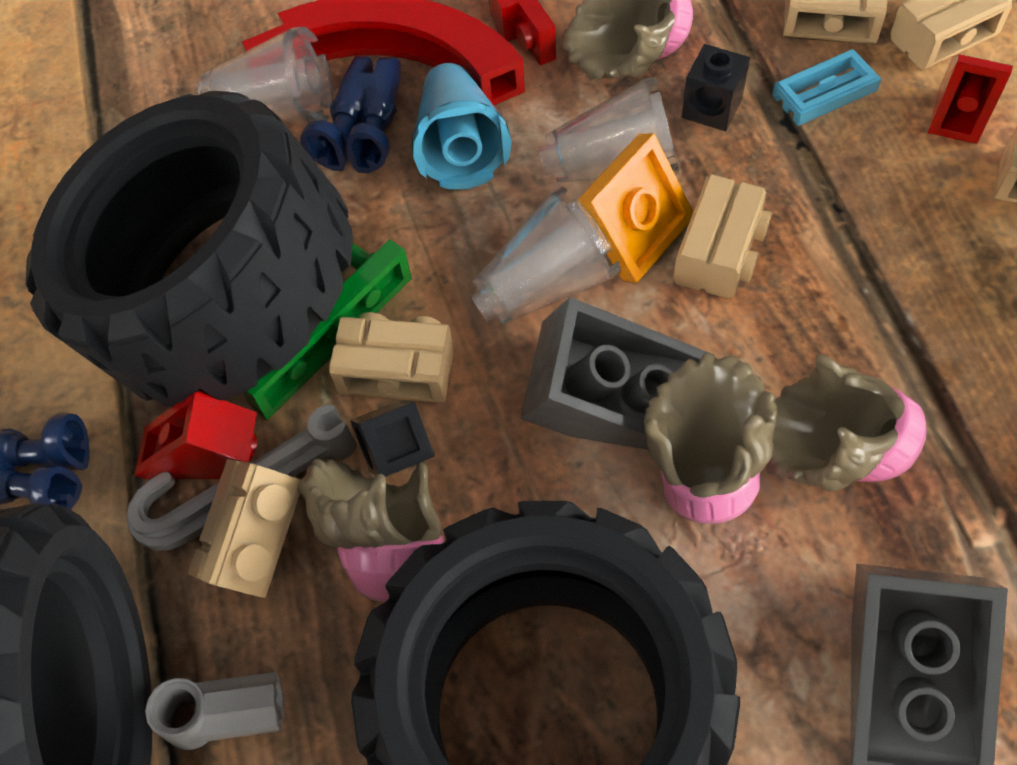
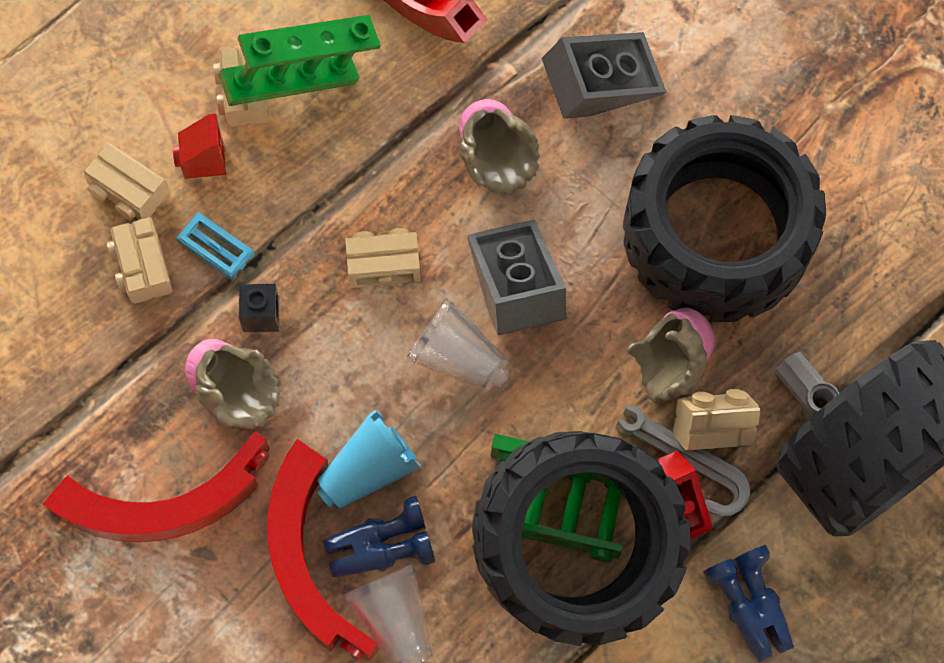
camera: 125 degrees left, 10 degrees up
(392, 358) = (562, 403): tan brick -> none
(392, 438) = (621, 375): black brick -> none
(597, 137) = (339, 349): clear cone -> none
(638, 206) = (394, 312): light orange tile -> none
(711, 437) = (538, 201): dark tan hair -> none

